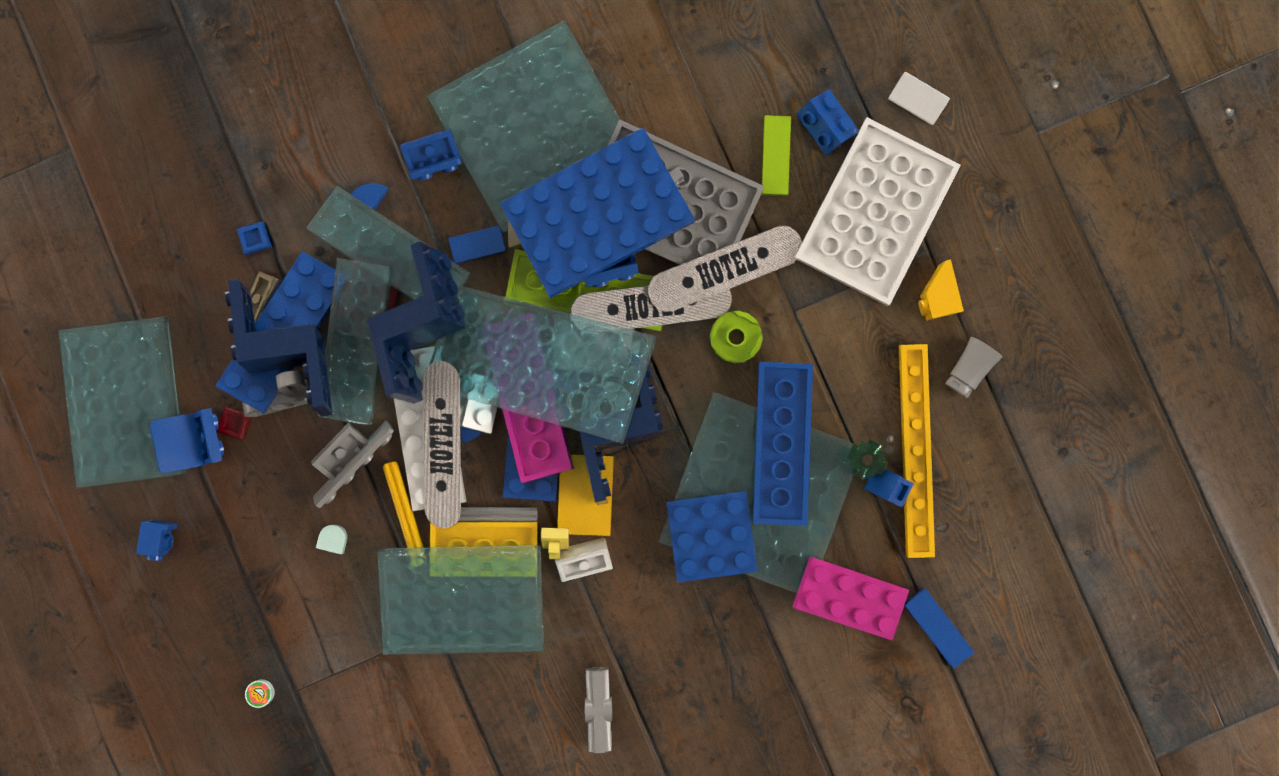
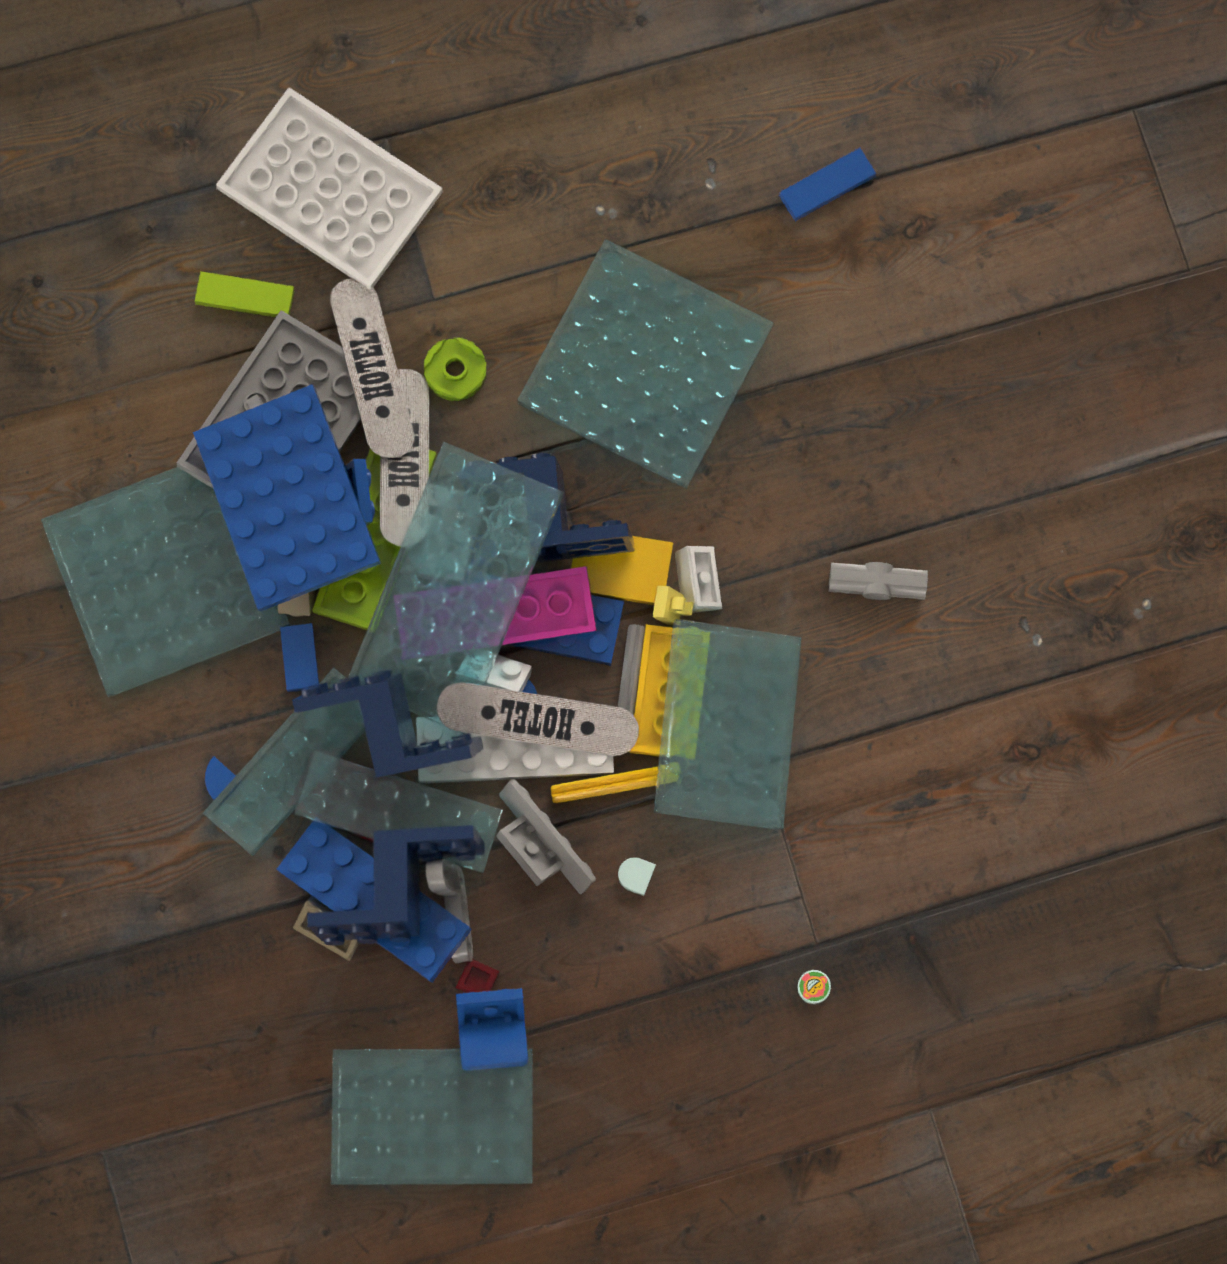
camera: 80 degrees left, 10 degrees down
(155, 539) = (609, 1088): blue brick -> none
(254, 238) = (251, 929): blue tile -> none
(431, 155) = (182, 696): blue bracket -> none
(711, 536) = (687, 422): blue plate -> none
(782, 443) = (588, 327): blue plate -> none
(827, 122) = (214, 231): blue bracket -> none
(850, 598) = (780, 276): dark pink plate -> none
(870, 448) = (619, 221): clear green brick -> none
(889, 487) = (654, 215): blue brick -> none
(917, 450) = (617, 180): yellow plate -> none
(918, 98) = (201, 124): white slope -> none
(941, 294) = (436, 129): yellow slope -> none
(972, 367) = (528, 105): light grey plant -> none

